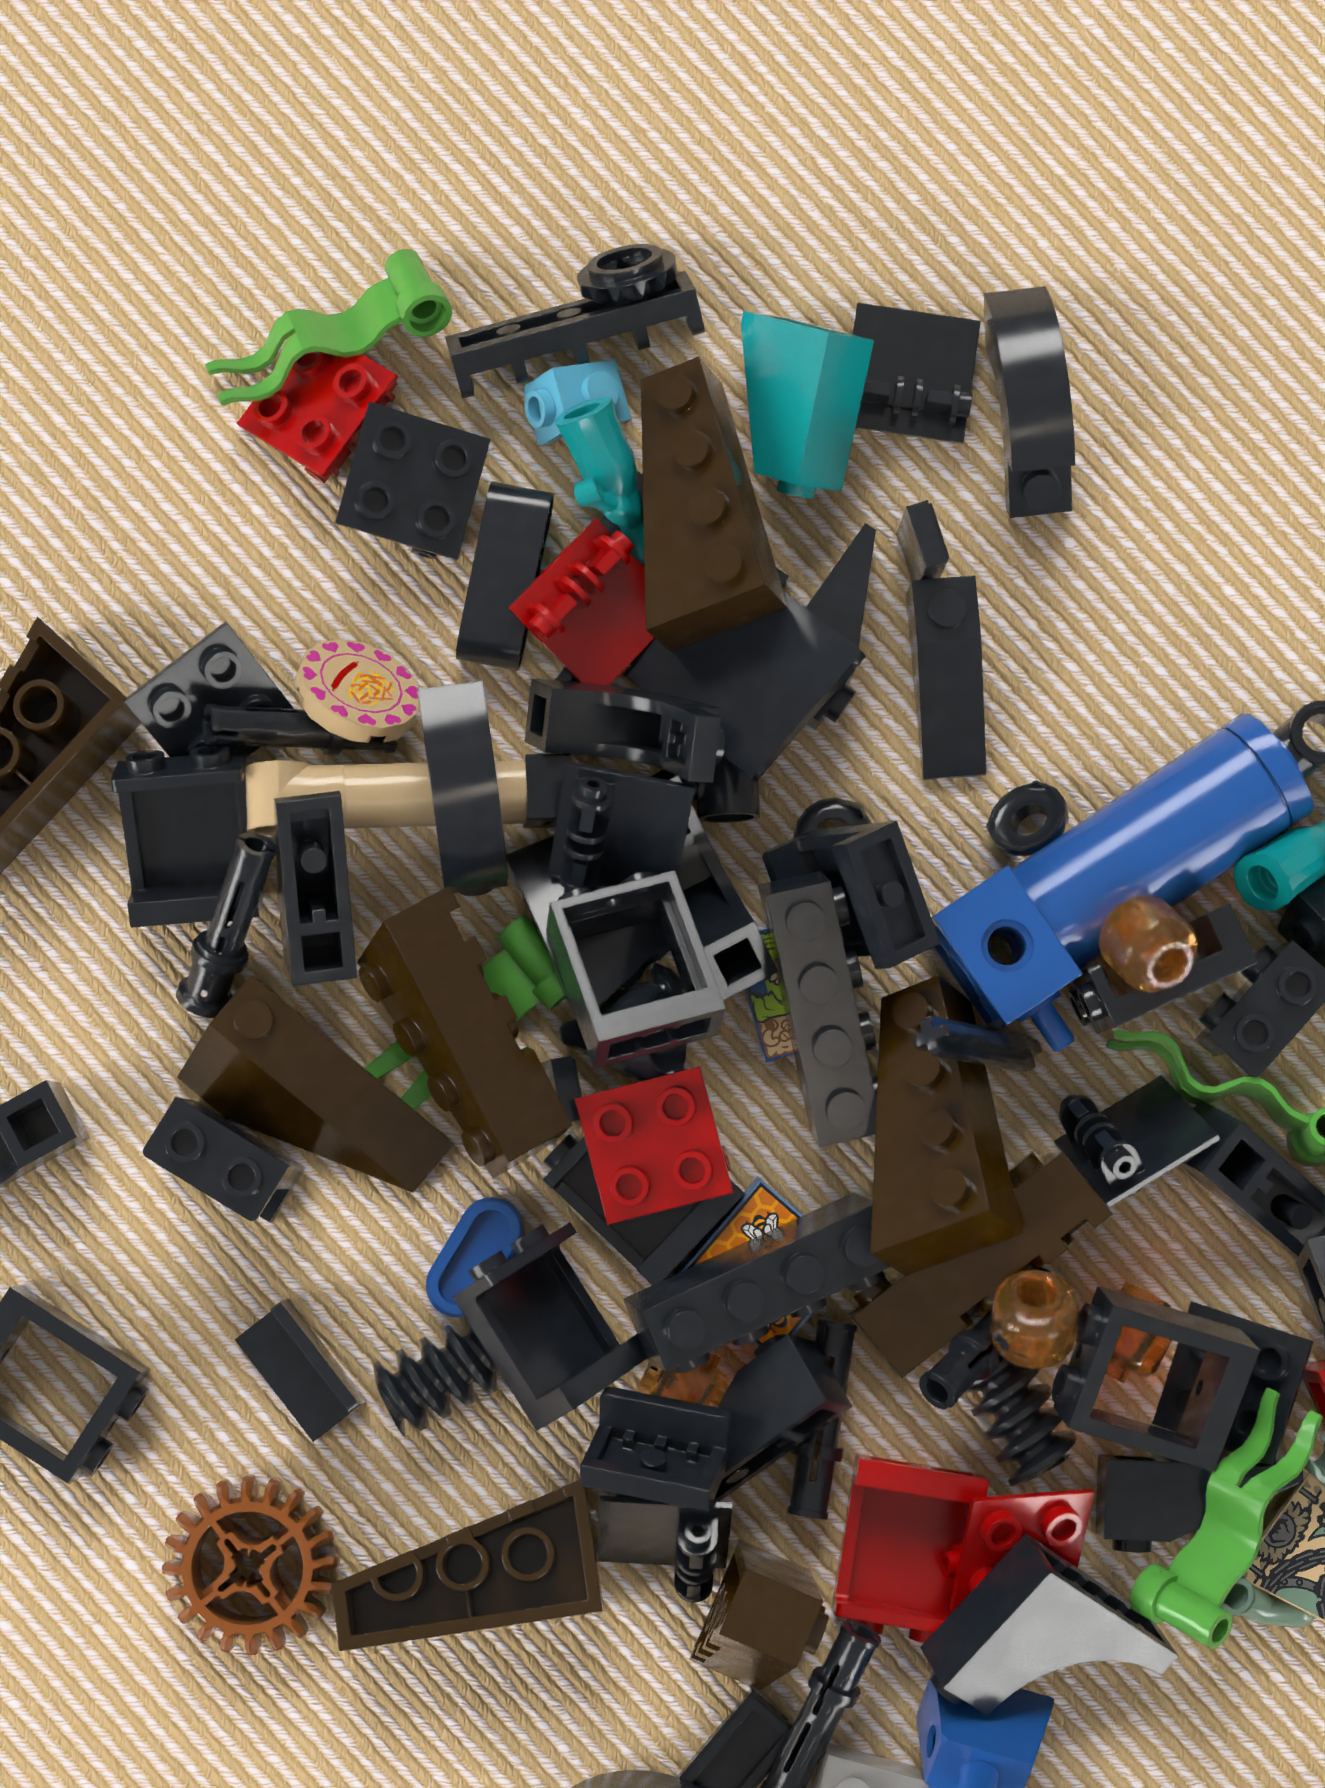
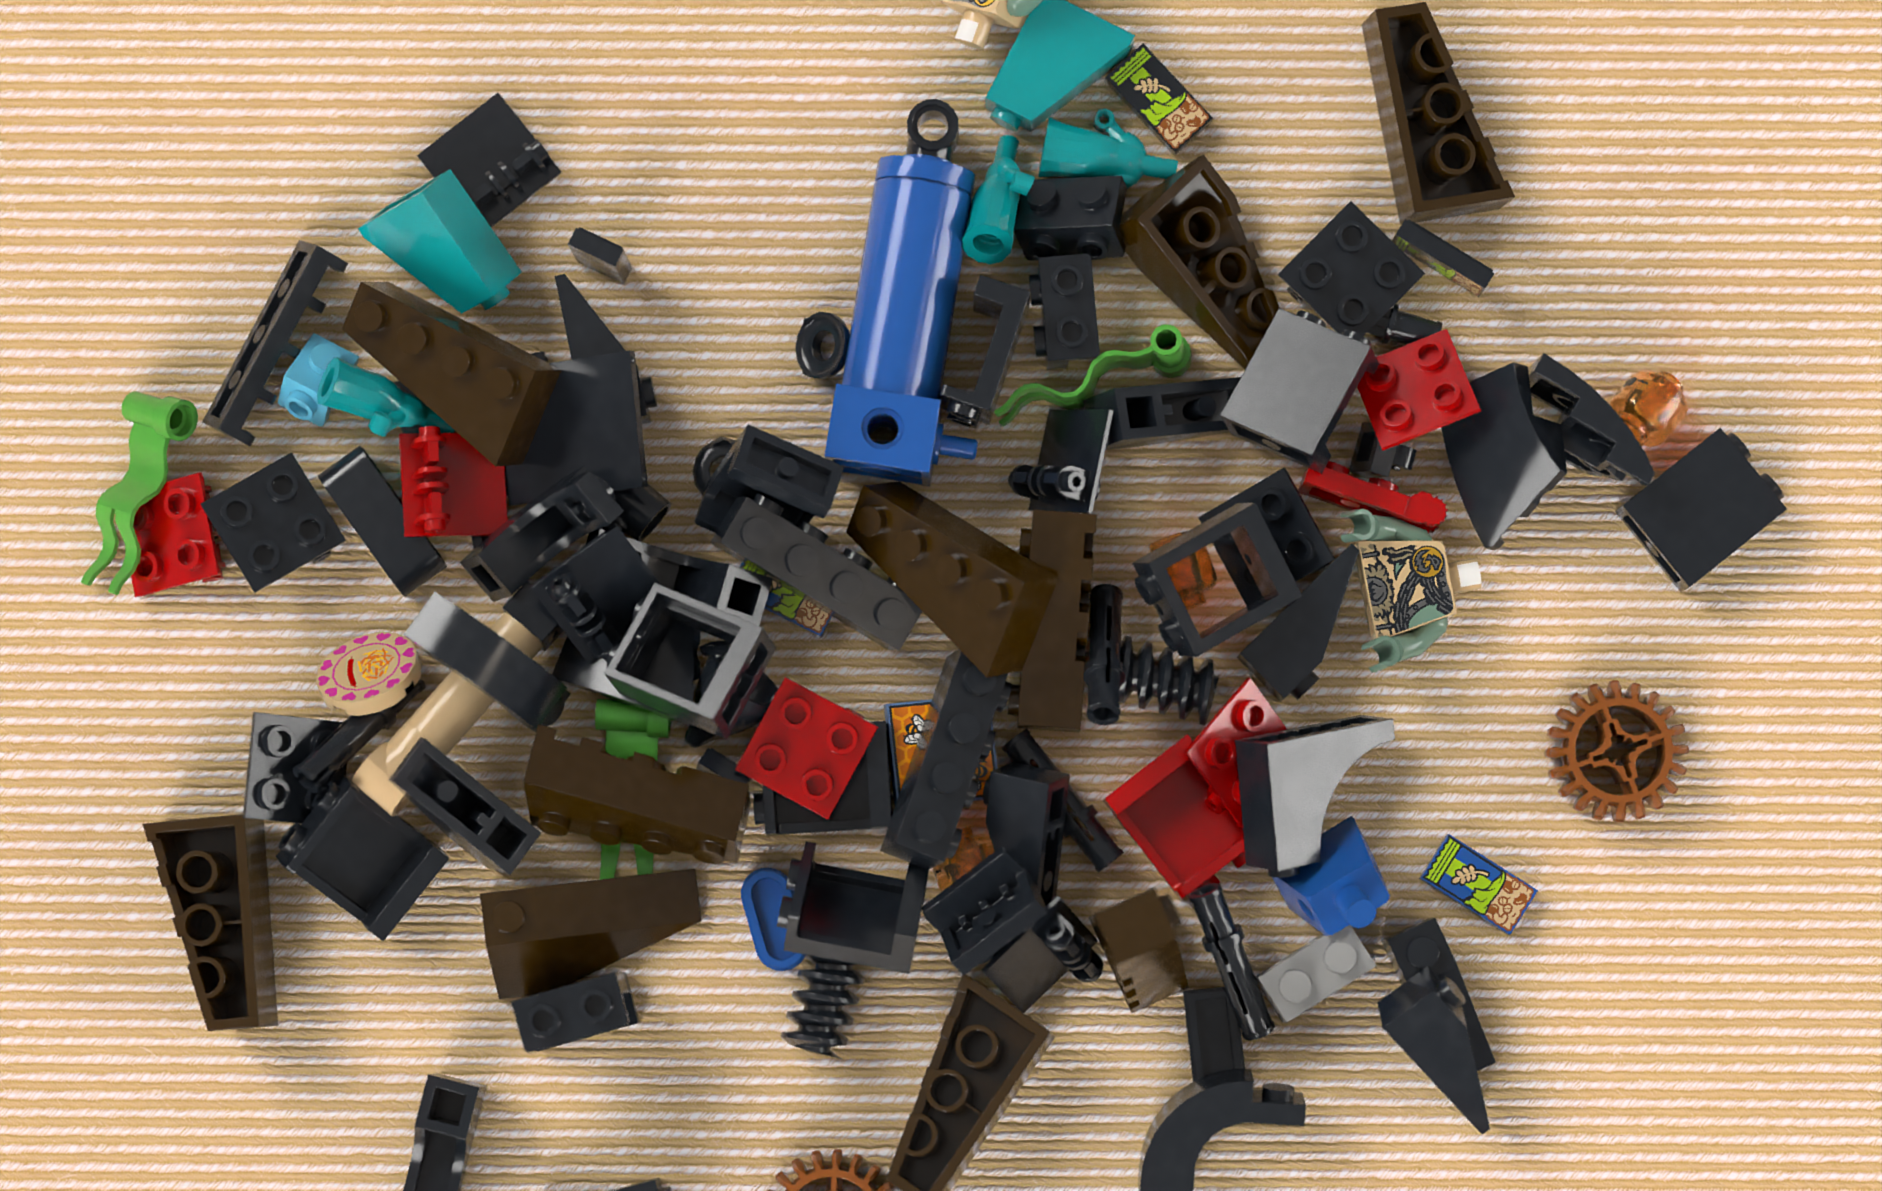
camera: 40 degrees left, 0 degrees up
(248, 865) = (446, 897): black pin -> none
(300, 1369) = (743, 1086): black panel -> none
(627, 273) = (268, 276): black gear -> none
(947, 676) = (693, 313): black slope -> none
(976, 1044) = (924, 500): black axle -> none
(1033, 398) = (574, 107): black arch -> none
(1034, 1319) = (1115, 617): clear orange head -> none
(1148, 943) = (958, 344): clear orange head -> none
(1229, 1536) = (1349, 622): bright green flag -> none

